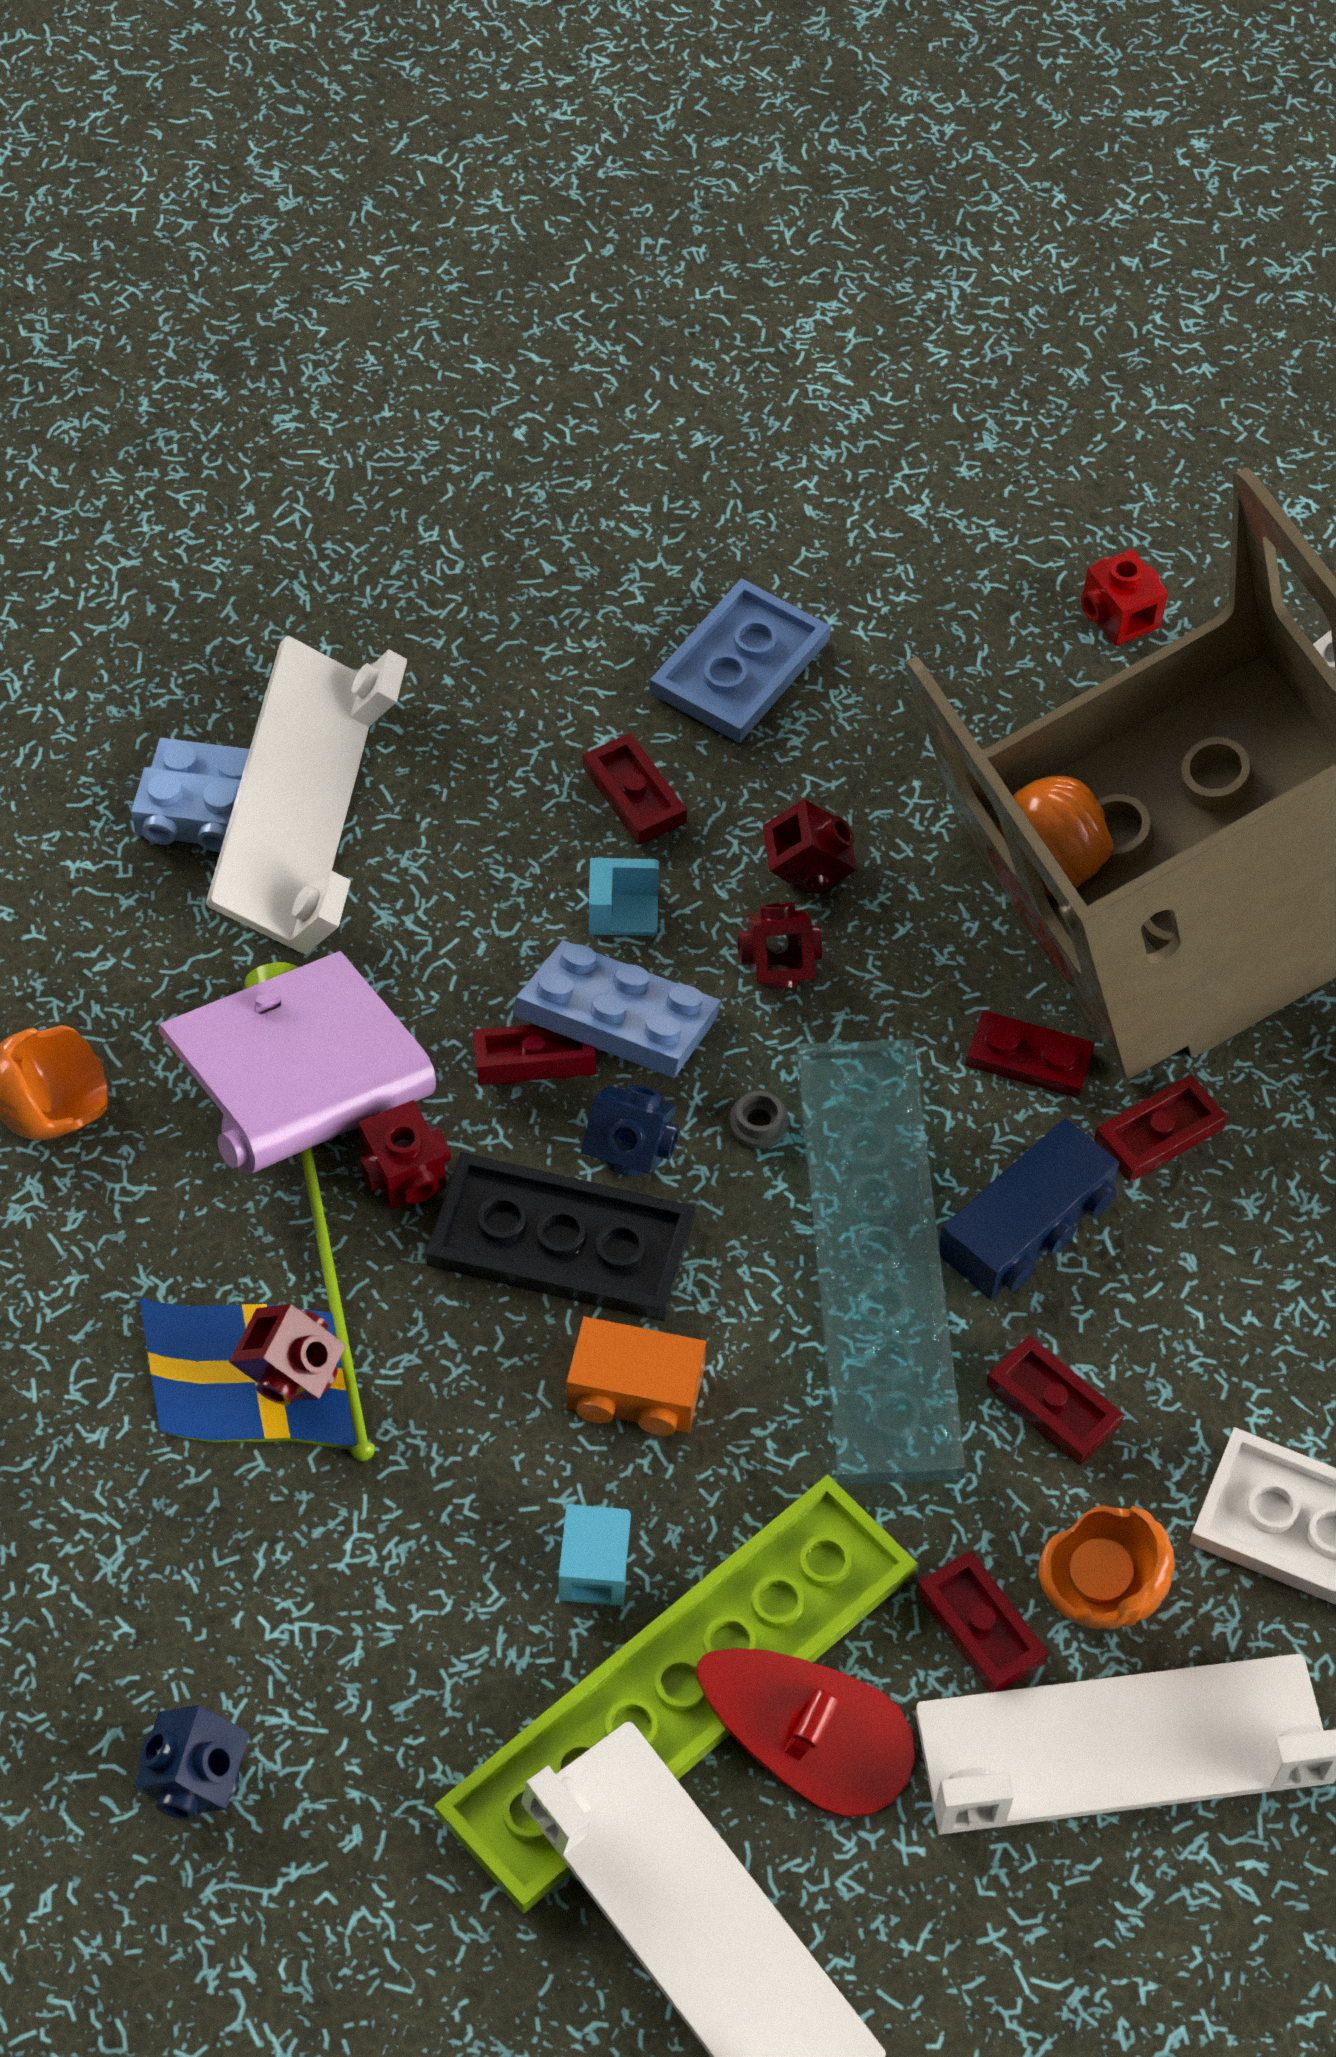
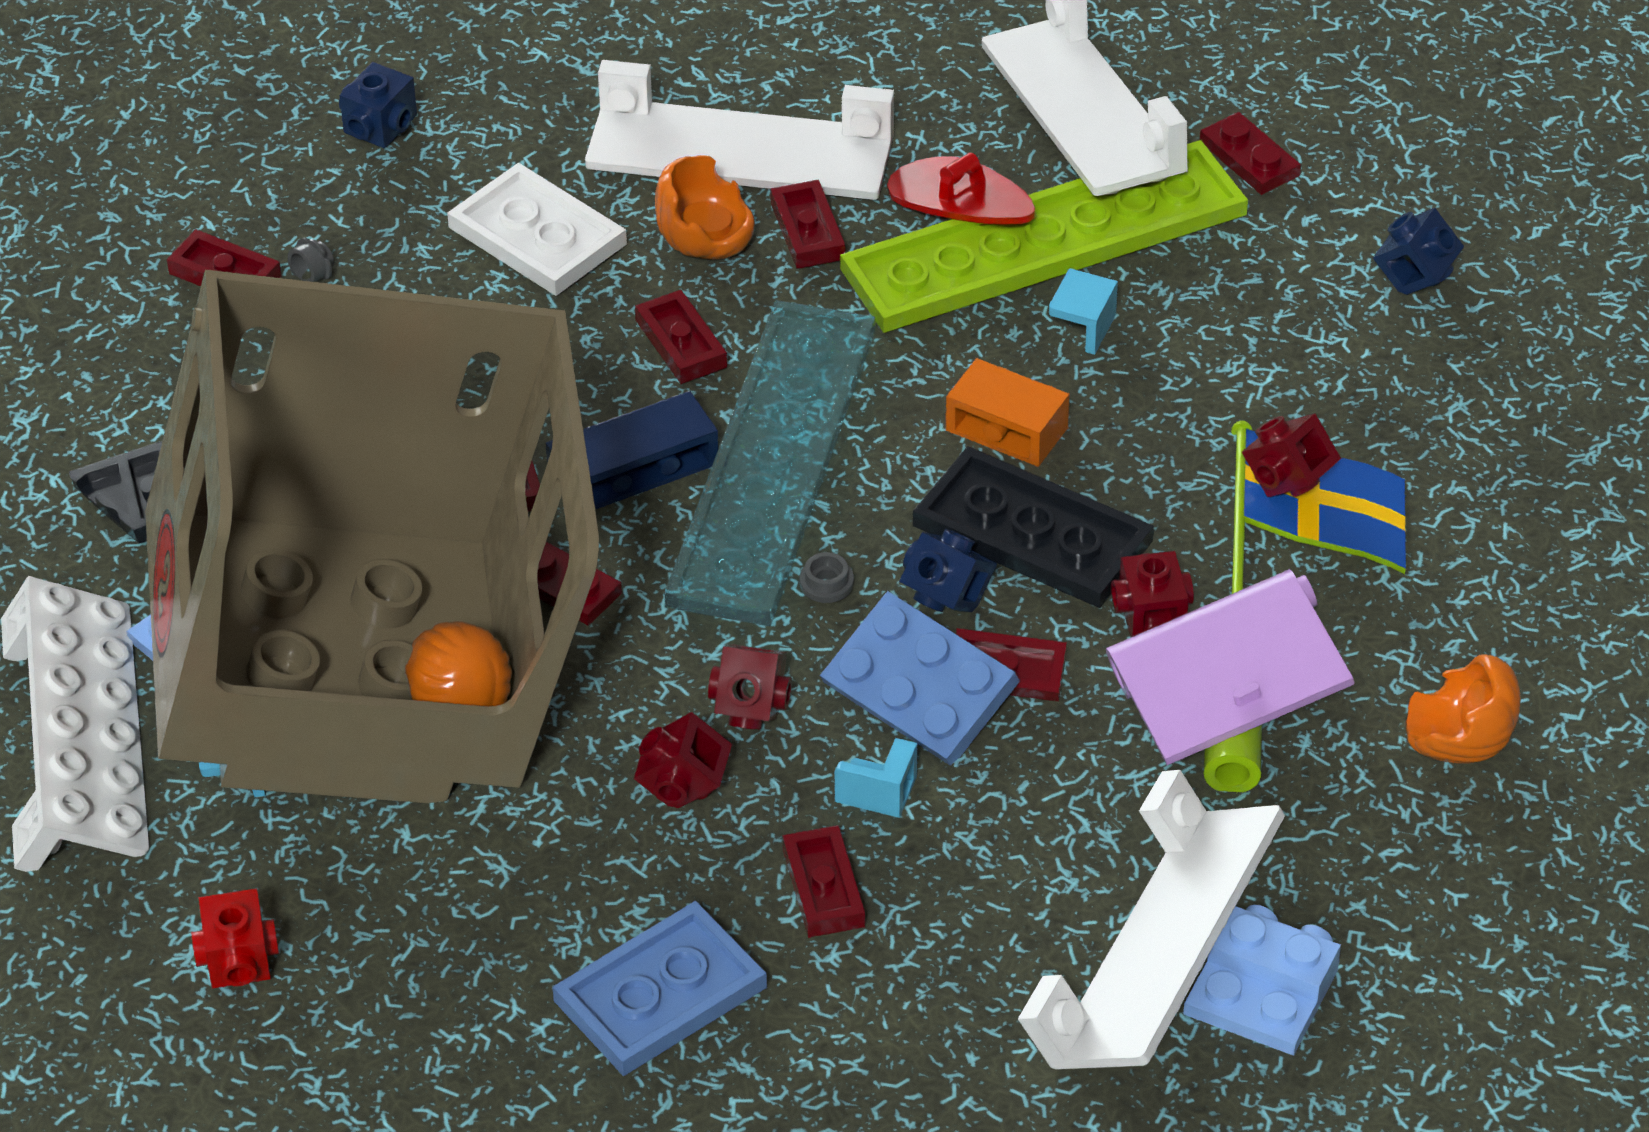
camera: 160 degrees left, 10 degrees down
(456, 1933) = (1250, 153): none -> dark red plate

